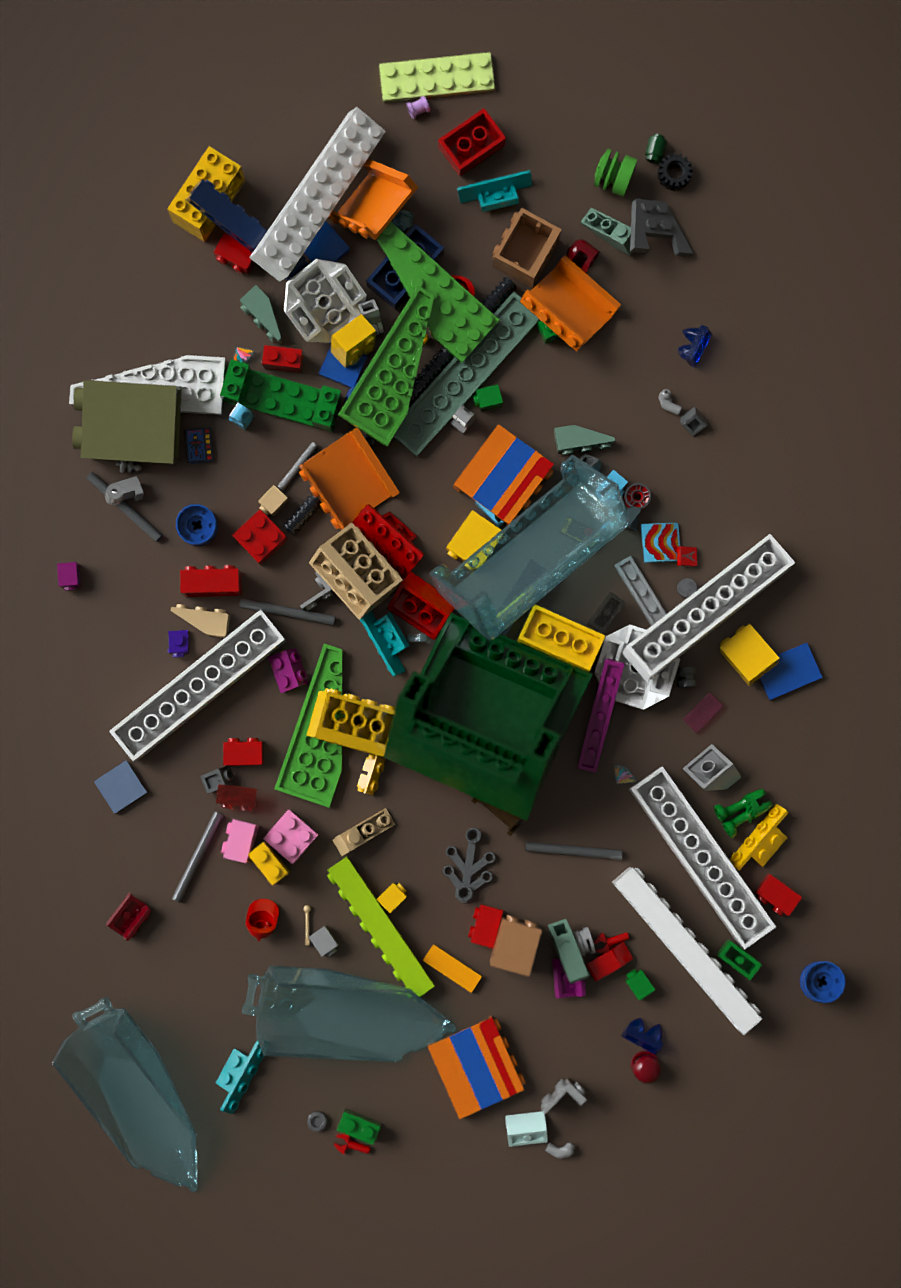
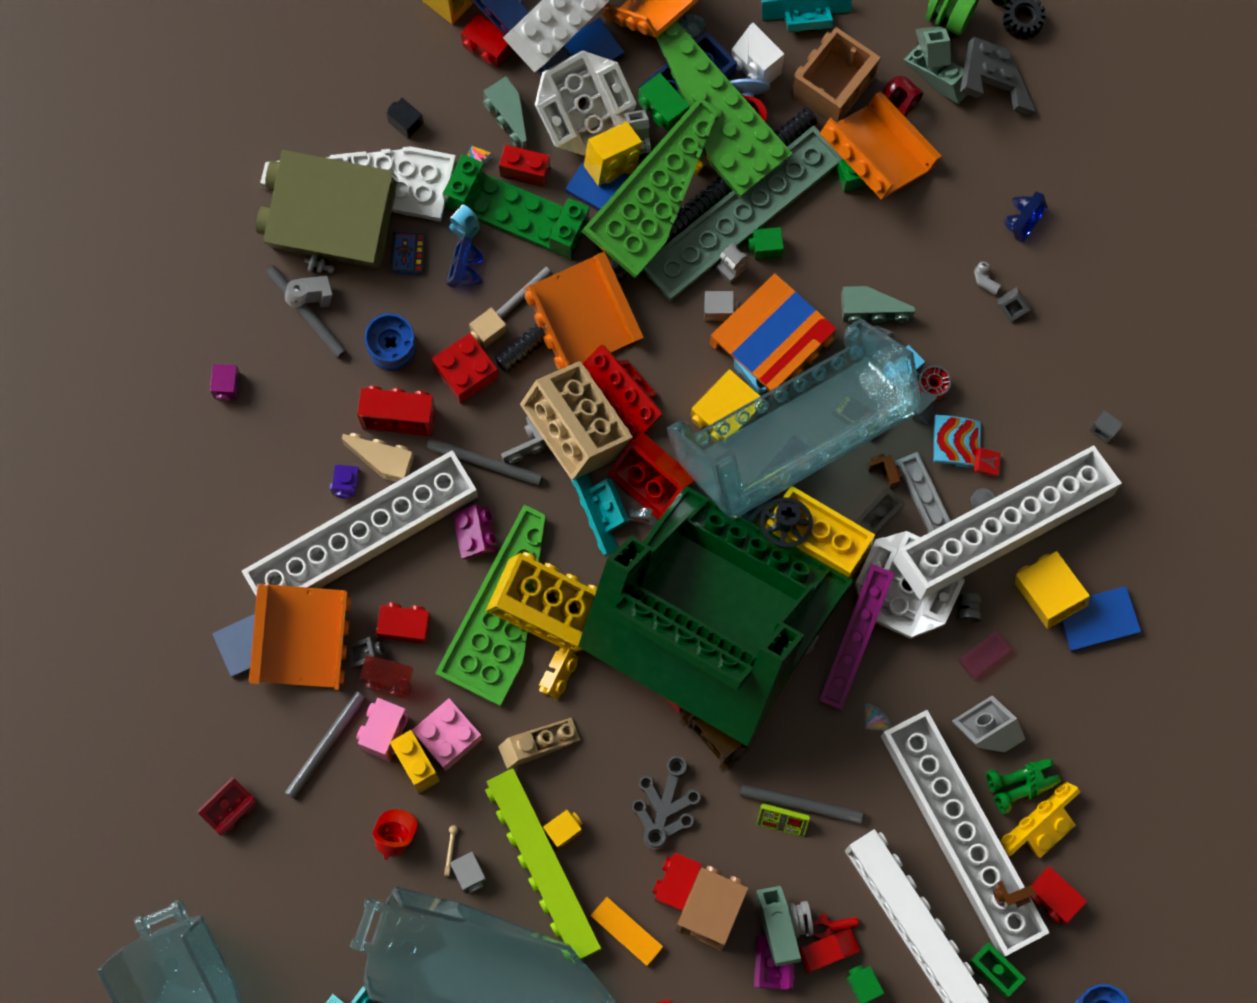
camera: 10 degrees right, 10 degrees down
(163, 775) = (299, 636): none -> orange panel
(178, 330) = (404, 117): none -> black brick
(244, 457) = (459, 272): none -> clear blue tile
(388, 293) = (662, 102): none -> green brick
(457, 268) = (750, 87): none -> light blue dish
(457, 456) = (719, 305): none -> light grey brick
(460, 239) = (758, 55): none -> white slope
(534, 635) = (786, 519): none -> black wheel
(561, 866) = (782, 820): none -> slope
(604, 210) = (935, 46): none -> sand green slope
(611, 575) = (891, 472): none -> reddish brown bracket
(749, 905) = (1018, 897): none -> reddish brown bracket
(778, 514) = (1106, 427): none -> dark grey slope

